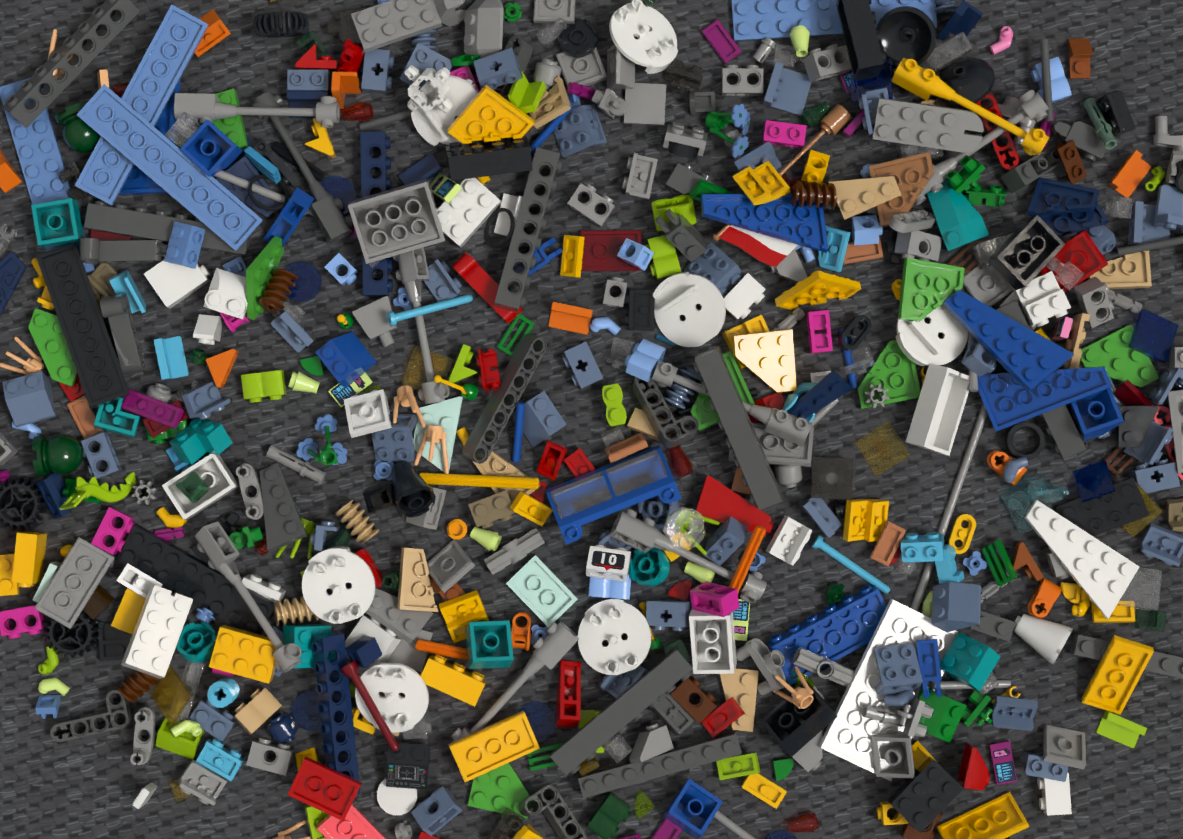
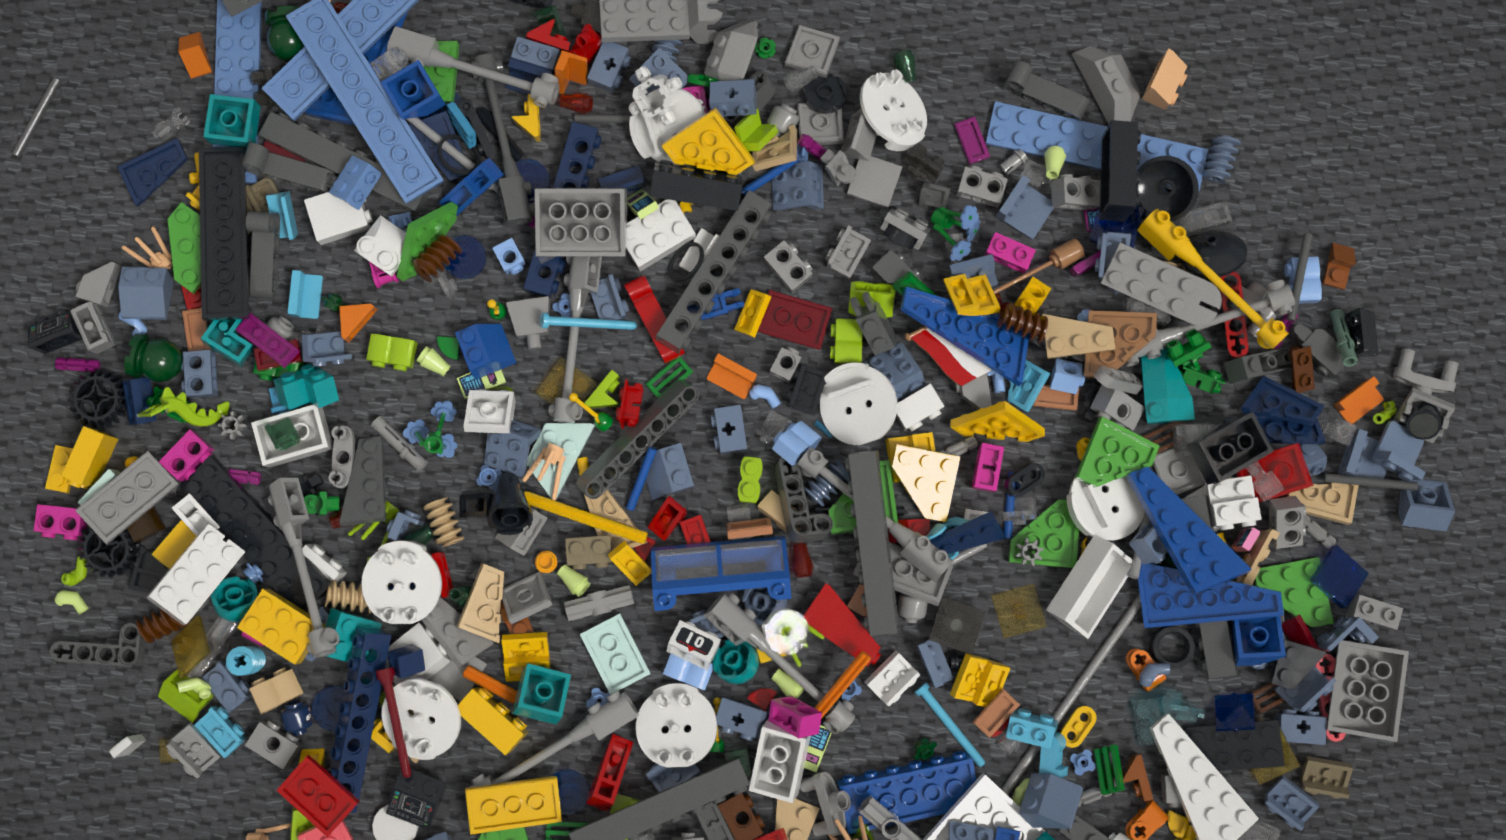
camera: 10 degrees right, 5 degrees down
(47, 705) = (59, 619): medium blue tile -> none
(141, 747) = (142, 694): light grey connector -> none
(170, 521) = (250, 463): yellow arm -> none
(208, 329) = (352, 276): white slope -> none
(291, 331) = (438, 304): sand blue bracket -> none
(406, 398) = (535, 409): light nougat plant -> none
(420, 730) = (441, 763): clear bracket -> none
(521, 633) = (580, 692): orange piece -> none
(635, 254) = (819, 329): light blue brick -> none
(725, 541) = (824, 658): sand blue brick -> none
(813, 115) = (1046, 242): clear green cone -> none
(961, 21) = (1228, 189): dark blue panel -> none
(1004, 41) = (1265, 225): bright pink arm -> none

